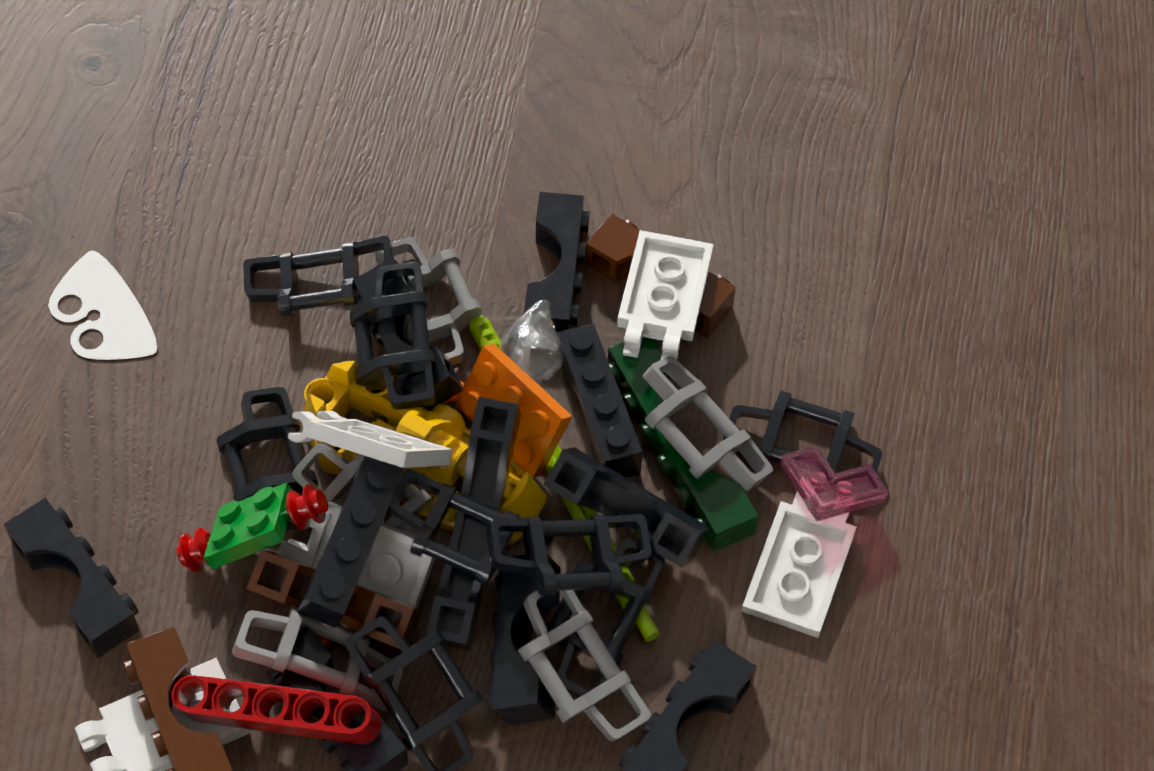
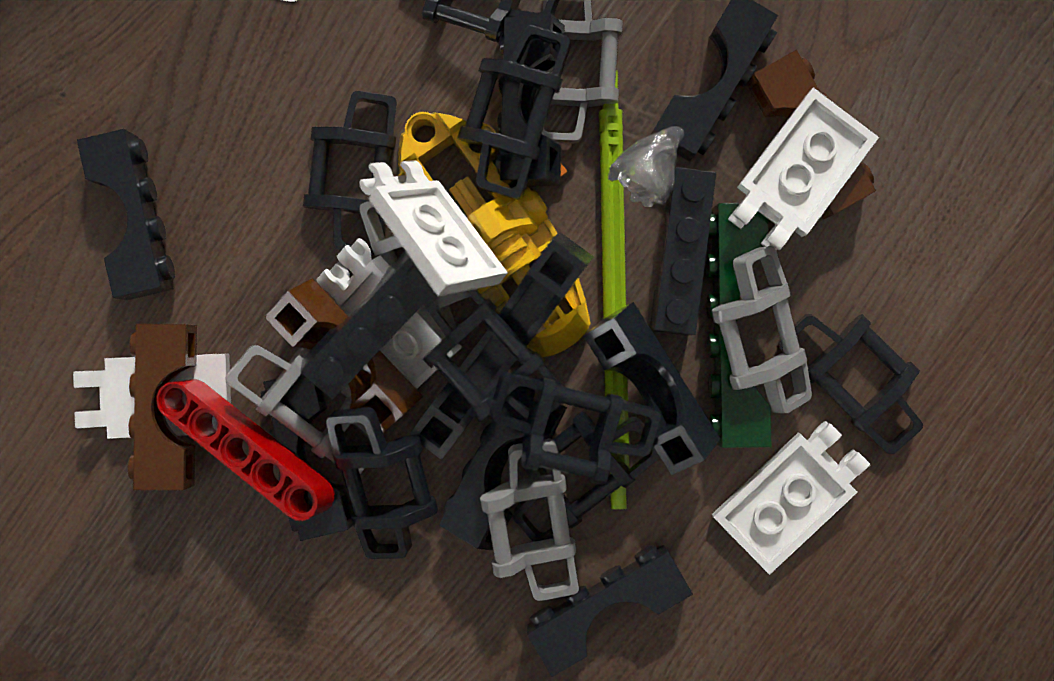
camera: 25 degrees right, 30 degrees up
(251, 526) = (298, 251): green plate -> none
(541, 419) = (594, 220): orange plate -> none
(831, 493) = (849, 451): clear pink tile -> none

